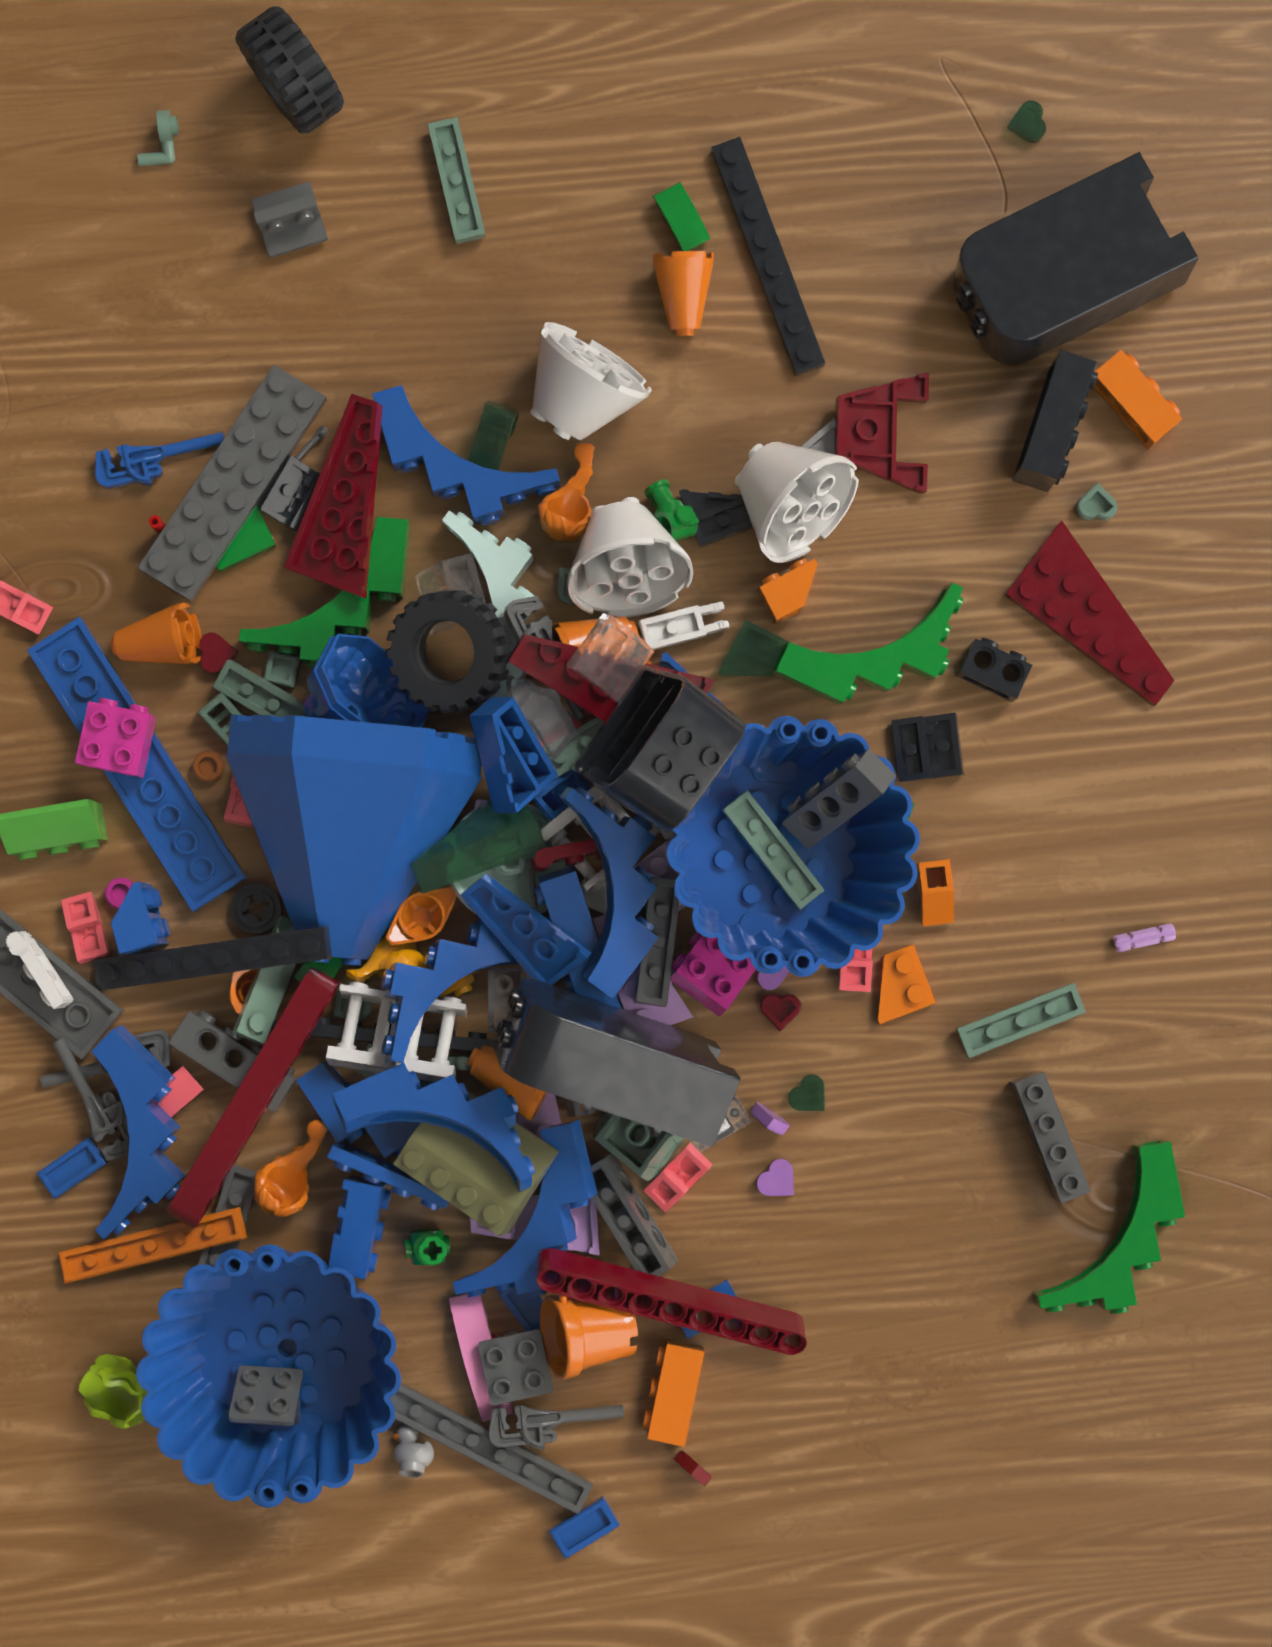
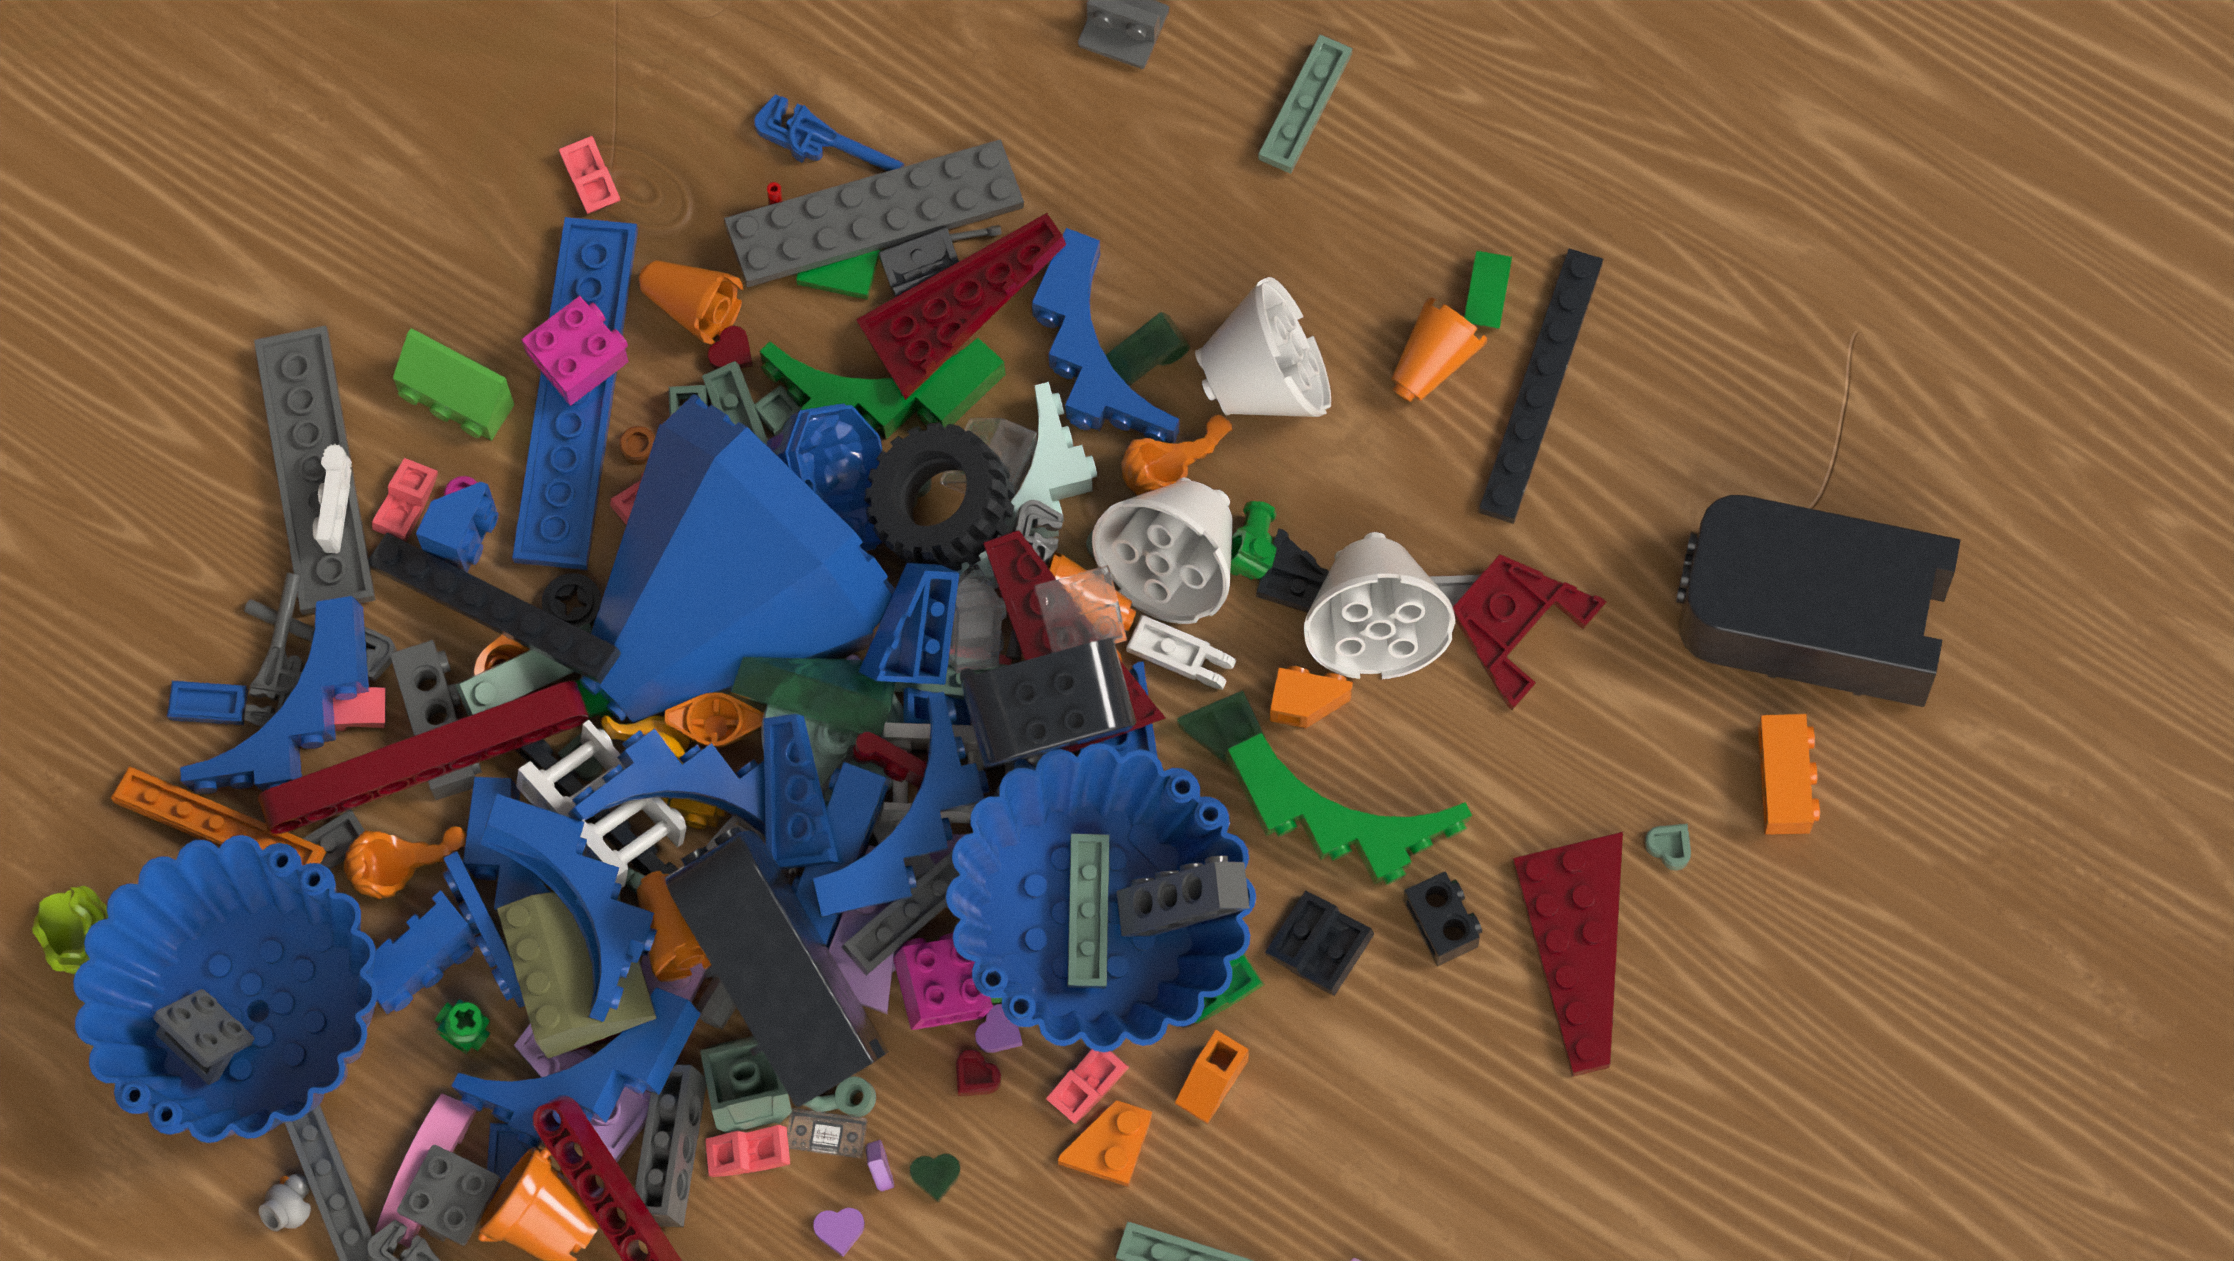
camera: 40 degrees right, 15 degrees down
(1028, 122) = (1893, 449): clear green tile -> none
(1054, 421) = (1686, 731): black piece -> none

